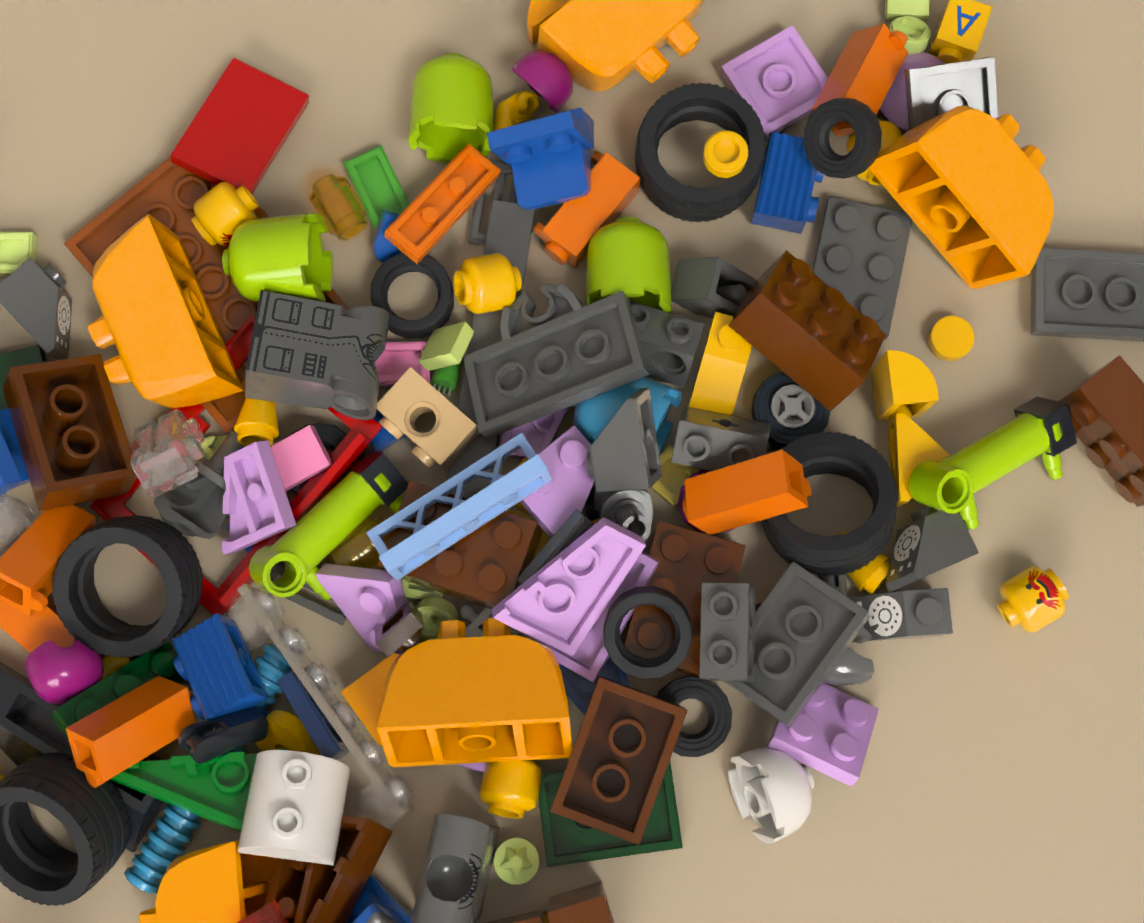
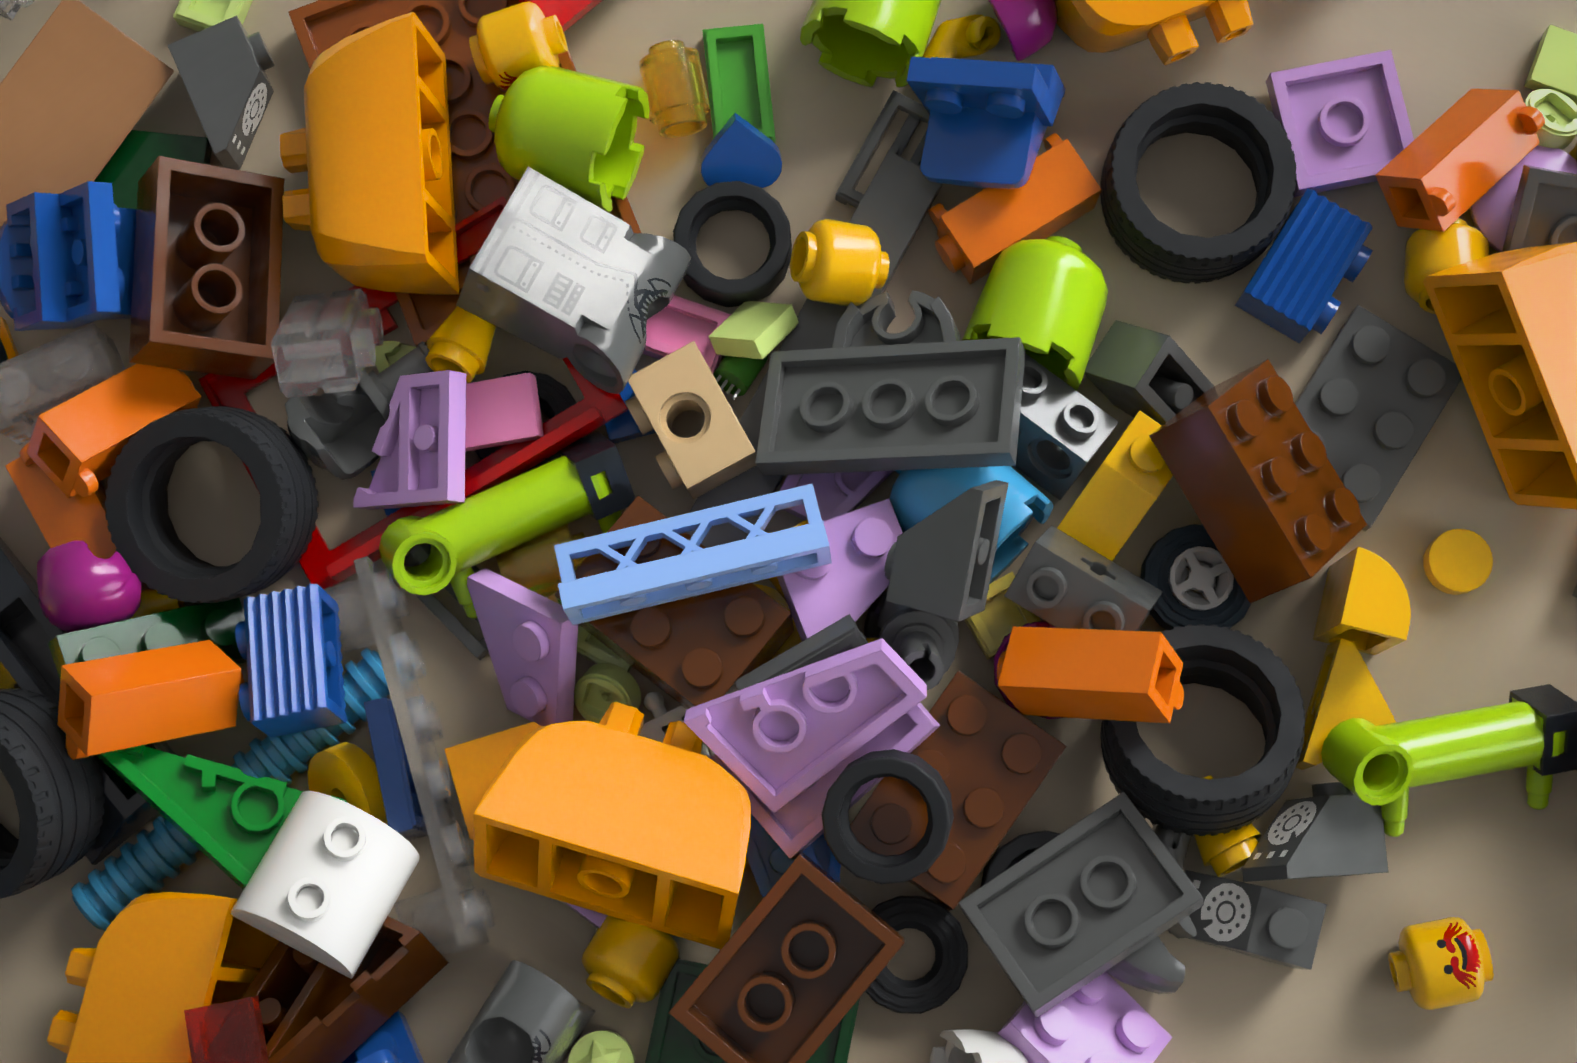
camera: 20 degrees right, 0 degrees up
(225, 734) = (268, 750): black bar -> none
(399, 630) = (552, 693): plate -> none
(442, 203) = (817, 132): orange tile -> none
(725, 154) = (1230, 197): yellow tile -> none
(727, 632) = (997, 855): dark grey brick -> none
(867, 138) = (1436, 242): black tyre -> none

